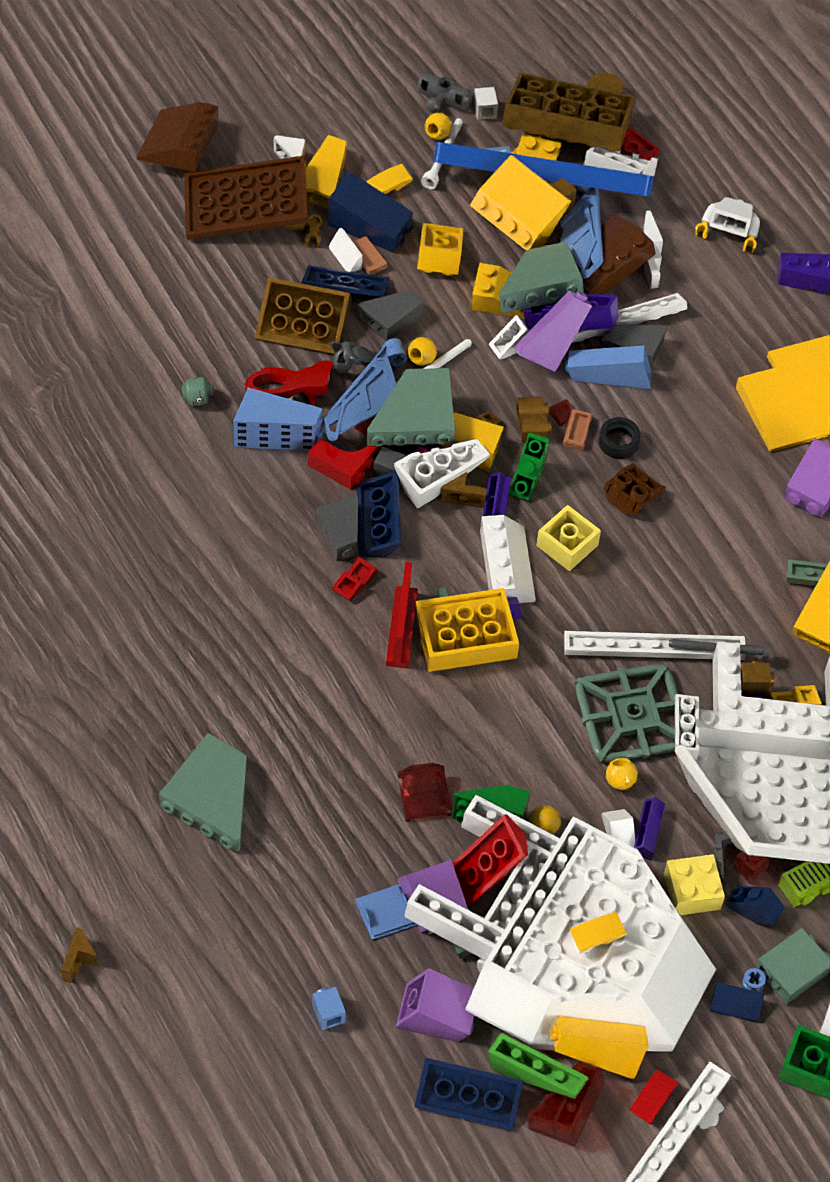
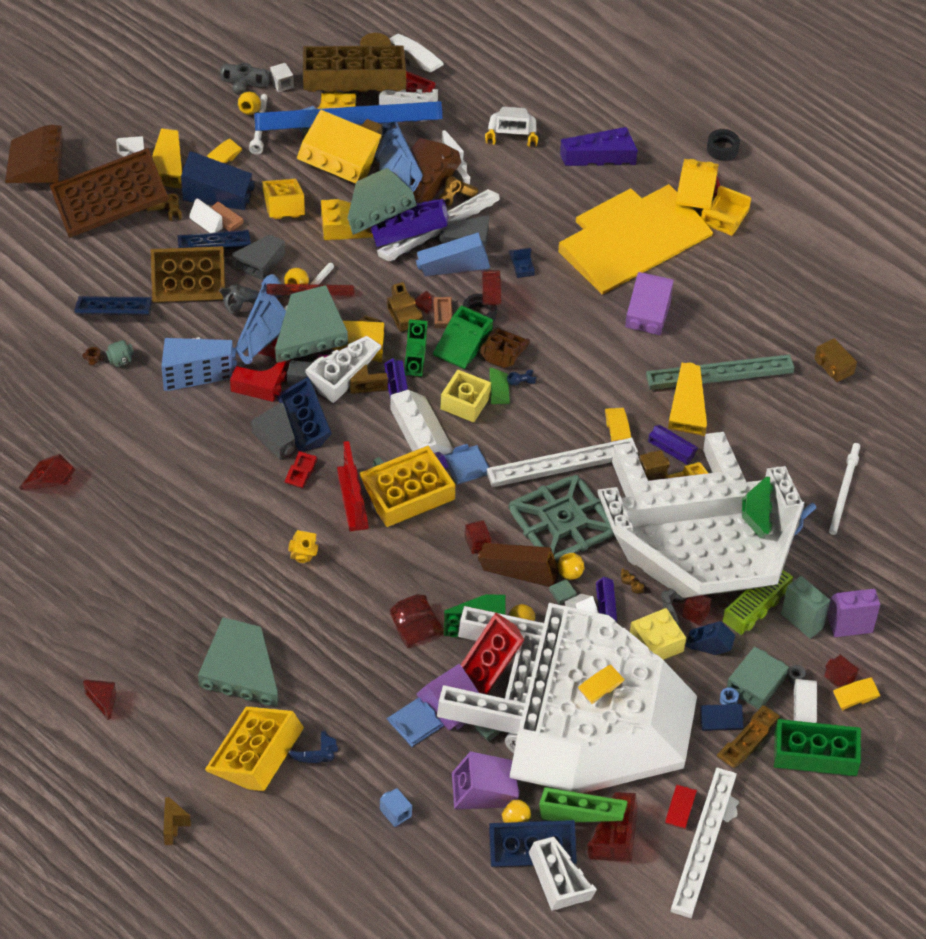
camera: 15 degrees left, 5 degrees down
(50, 788) = (102, 695): none -> clear red slope
(75, 512) = (49, 473): none -> clear red slope
(168, 381) = (93, 355): none -> reddish brown plate
(197, 894) = (256, 747): none -> yellow slope
(210, 332) = (113, 305): none -> dark blue slope
(274, 915) = (328, 746): none -> dark blue hair
(310, 380) = (211, 323): red animal -> none
(325, 672) = (303, 546): none -> yellow brick
(421, 363) = (288, 289): none -> clear red axle
(461, 1052) = (516, 812): none -> yellow piece
(484, 1143) = (559, 877): none -> white wedge
(508, 337) = (365, 254): white slope -> none
(527, 711) = (476, 535): none -> clear red brick
(534, 390) = (398, 289): none -> pearl gold piece
(544, 618) = (466, 463): none -> medium blue piece
(555, 331) = (402, 238): medium lavender slope -> none
(565, 754) = (520, 562): none -> reddish brown slope
(589, 466) = (463, 337): none -> green slope
(601, 1043) = (629, 773): yellow slope -> none
(603, 801) = (562, 591): none -> sand green tile
(612, 535) = (499, 387): none -> bright green slope
(633, 530) = (515, 378): none -> dark blue arm
(636, 281) = (454, 185): none -> pearl gold bar
(639, 414) = (491, 287): none -> clear red arch
(648, 108) = (417, 54): none -> white slope
(685, 806) = (629, 579): none -> pearl gold piece
(688, 391) = (522, 262): none -> dark blue slope
(711, 646) = (652, 445): dark grey bar -> none
(734, 615) = (617, 423): none -> yellow slope
(760, 1036) = (750, 738): none -> pearl gold slope
(791, 655) = (672, 444): none -> dark purple piece

